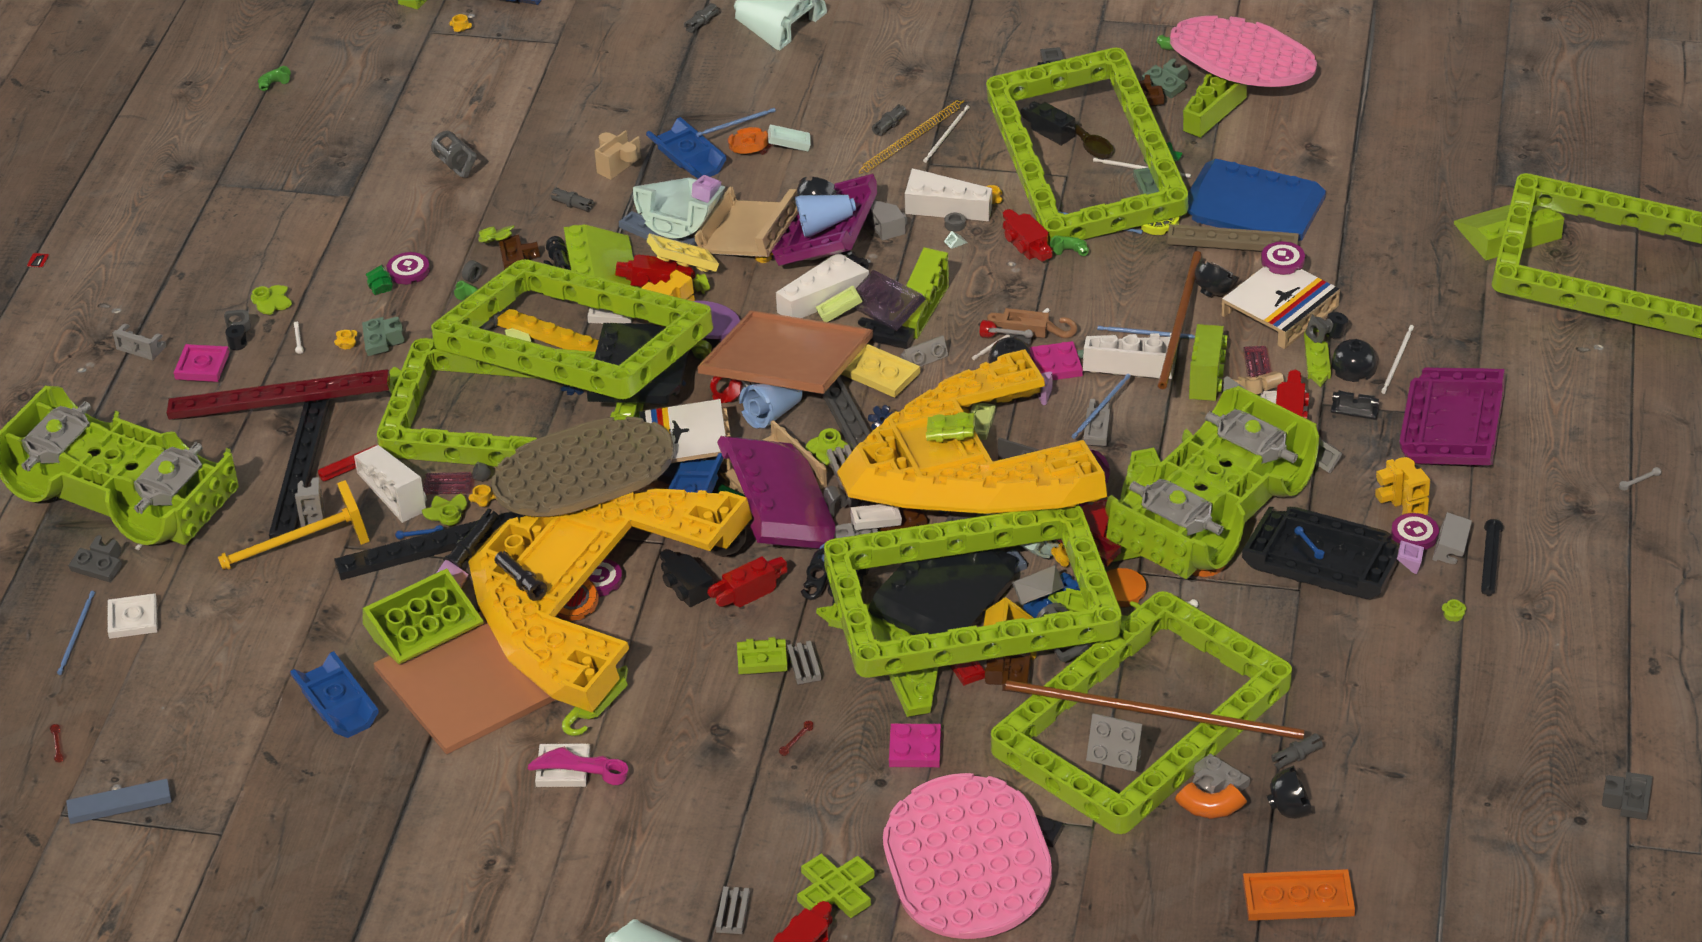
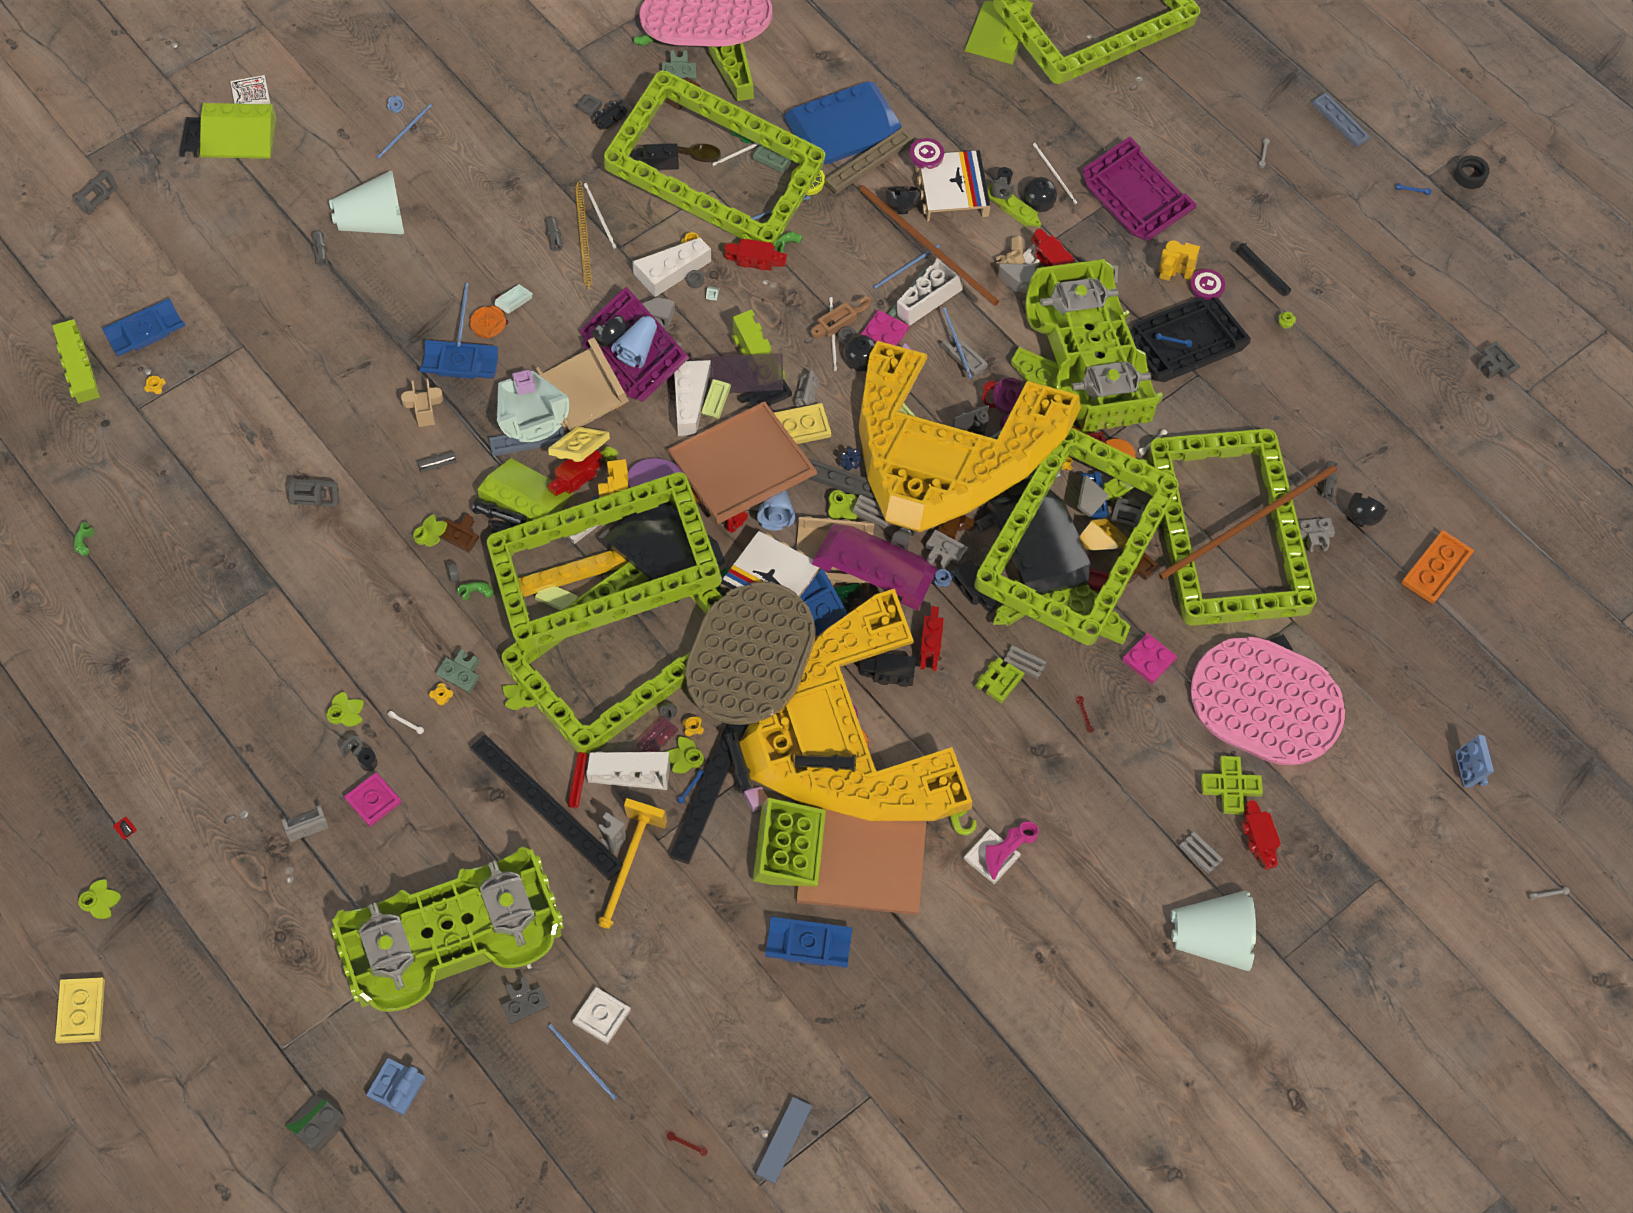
camera: 55 degrees left, 20 degrees up
(278, 394) = (468, 777): dark red plate -> none
(379, 280) = (400, 632): green piece -> none
(408, 267) = (402, 606): magenta tile -> none
(818, 583) = (955, 589): black piece -> none
(875, 516) = (941, 533): white tile -> none
(950, 427) = (928, 434): lime plate -> none
(989, 329) = (823, 341): hinge -> none
(1114, 742) = (1269, 563): light grey hinge -> none
(1207, 361) = (972, 259): lime wedge -> none
(1210, 804) = (1335, 553): orange cylinder -> none
(1256, 360) = (990, 239): clear pink tile -> none
(1364, 406) = (1078, 225): black hinge -> none
(1410, 555) = (1231, 303): lavender slope -> none
(1452, 538) = (1234, 274): light grey hinge -> none

